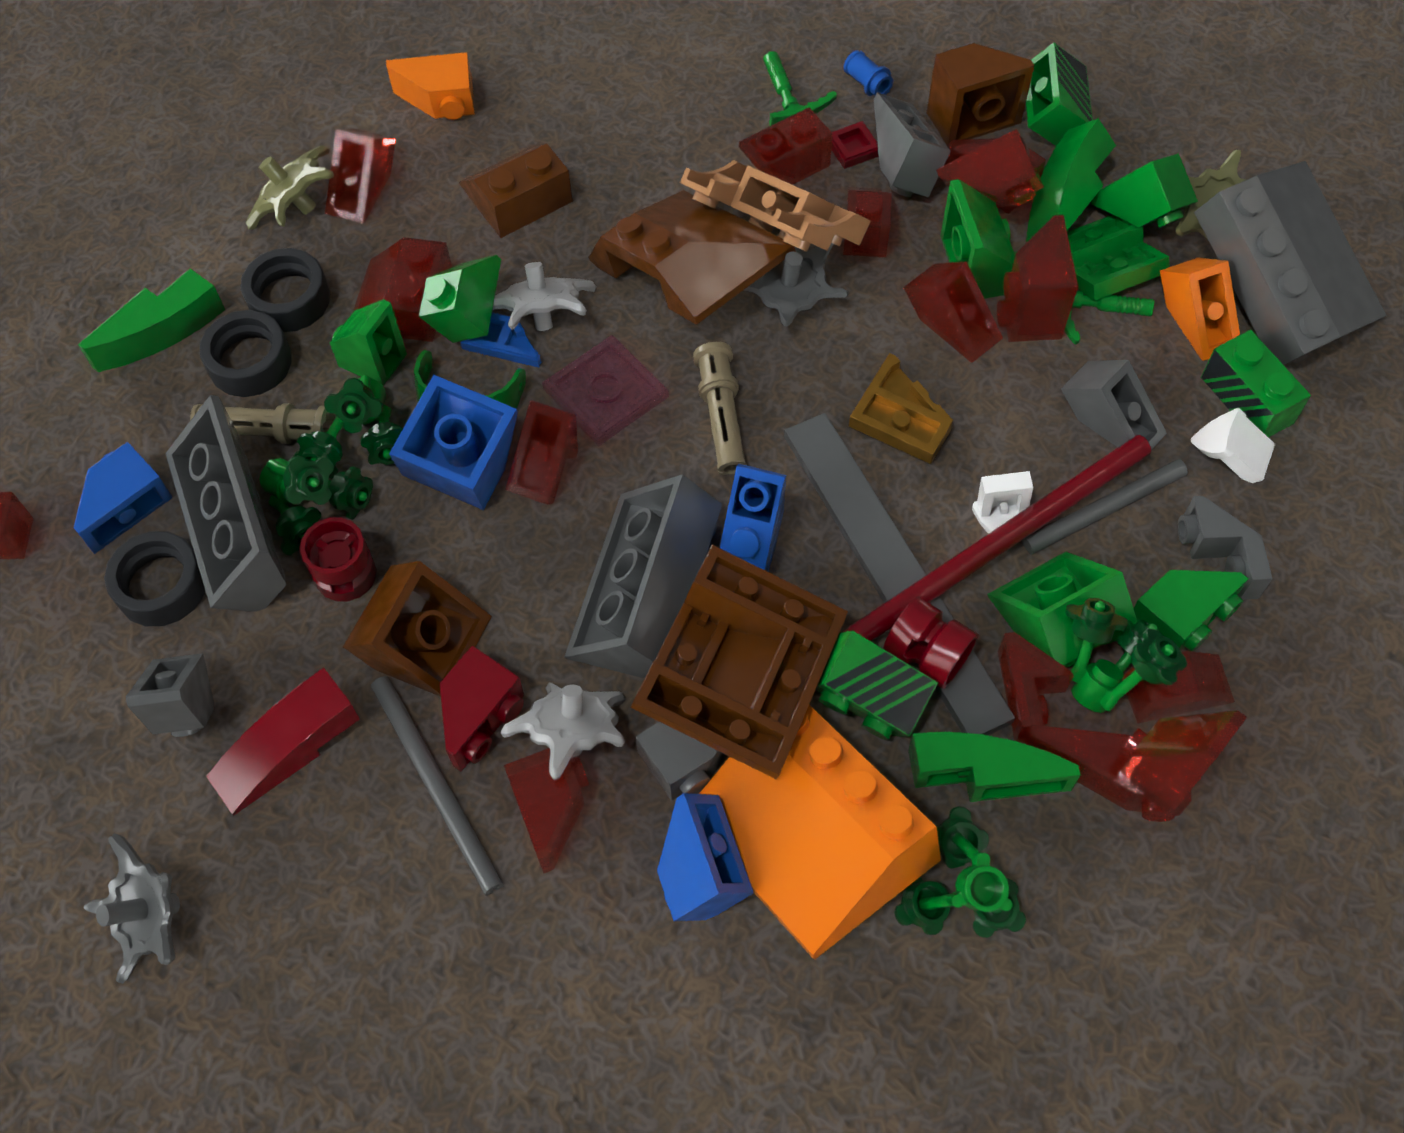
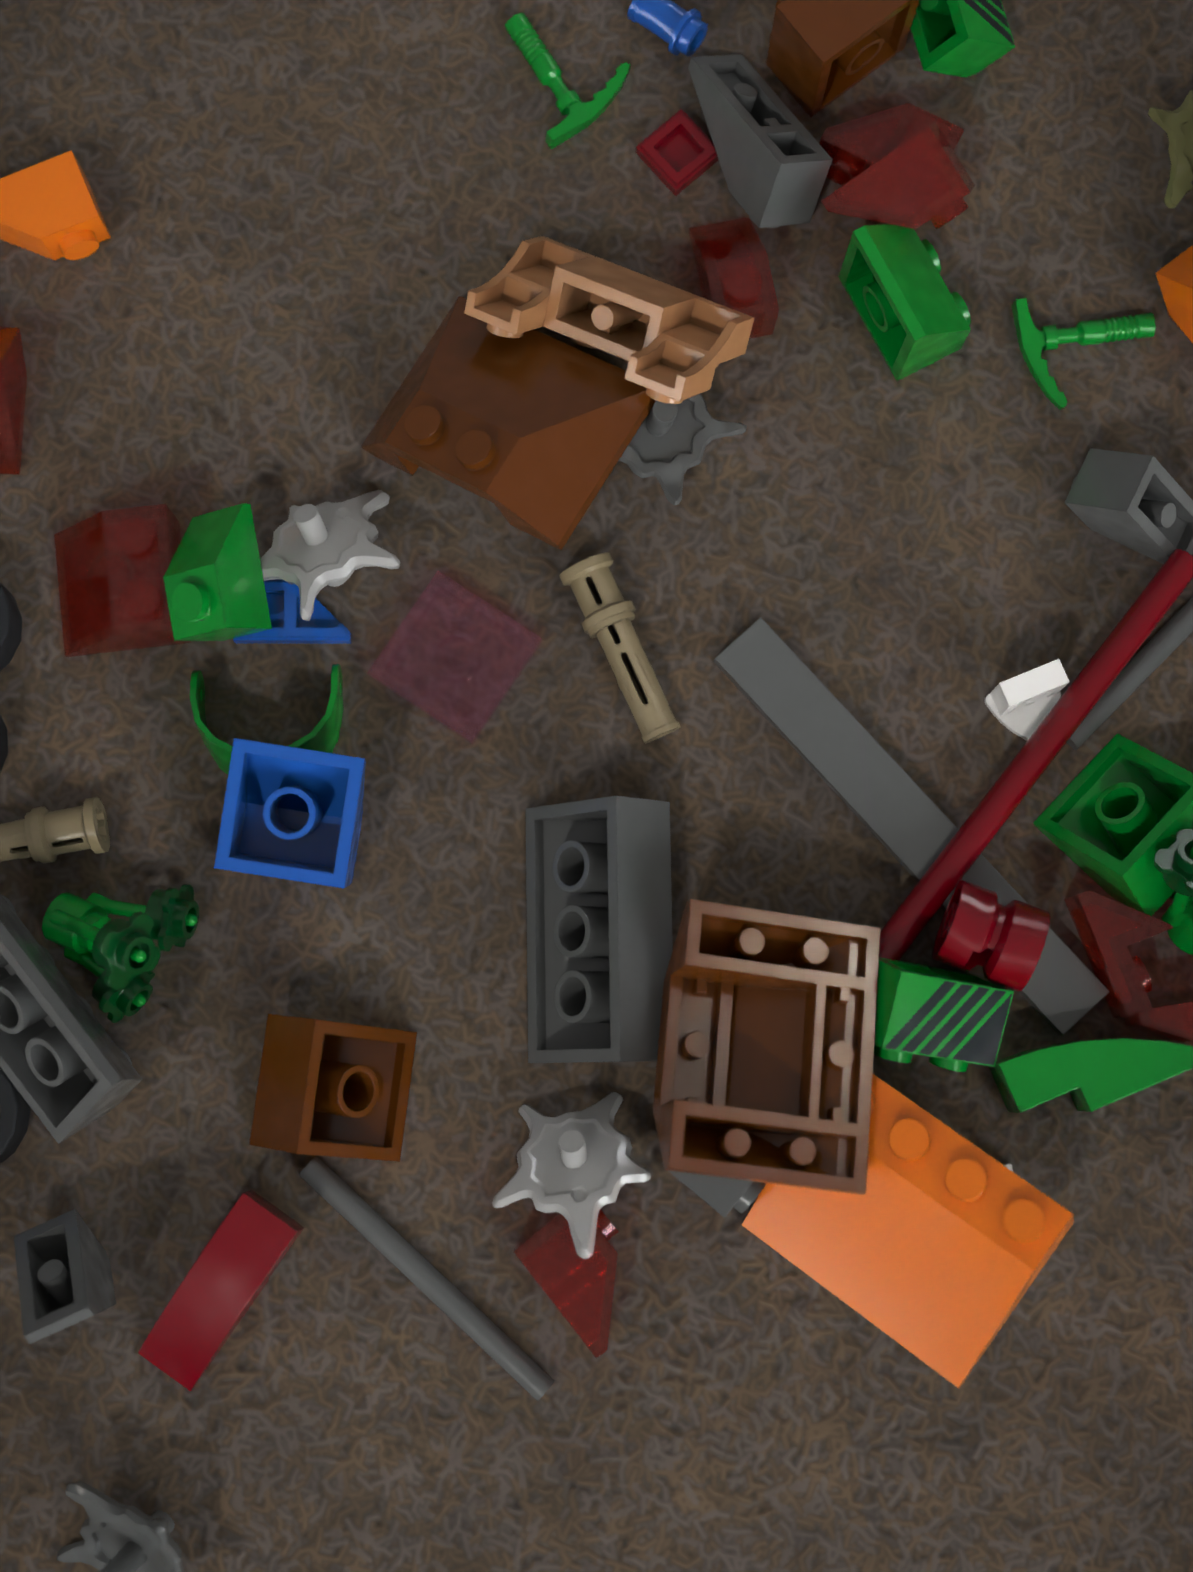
camera: 20 degrees left, 20 degrees up
(338, 559) = (196, 1025): dark red wheel -> none
(355, 404) = (146, 817): dark green plant -> none
(370, 342) = (110, 686): green slope -> none
(474, 703) = (440, 1169): dark red slope -> none
(520, 189) = (222, 358): reddish brown slope -> none
(541, 453) = (409, 794): clear red slope -> none
(701, 860) = (790, 1298): blue slope -> none
(754, 515) = (721, 838): blue slope -> none
(791, 147) = (595, 197): clear red slope -> none
(901, 413) = (861, 590): pearl gold wing -> none
(954, 308) = (891, 405): clear red slope -> none
(977, 886) = (1132, 1247): dark green plant -> none
(1039, 286) = (1009, 354): clear red slope -> none
(1071, 175) = (1002, 152): green slope -> none
(1112, 257) = (1075, 257): green slope -> none
(1149, 194) = (1116, 153): green slope -> none

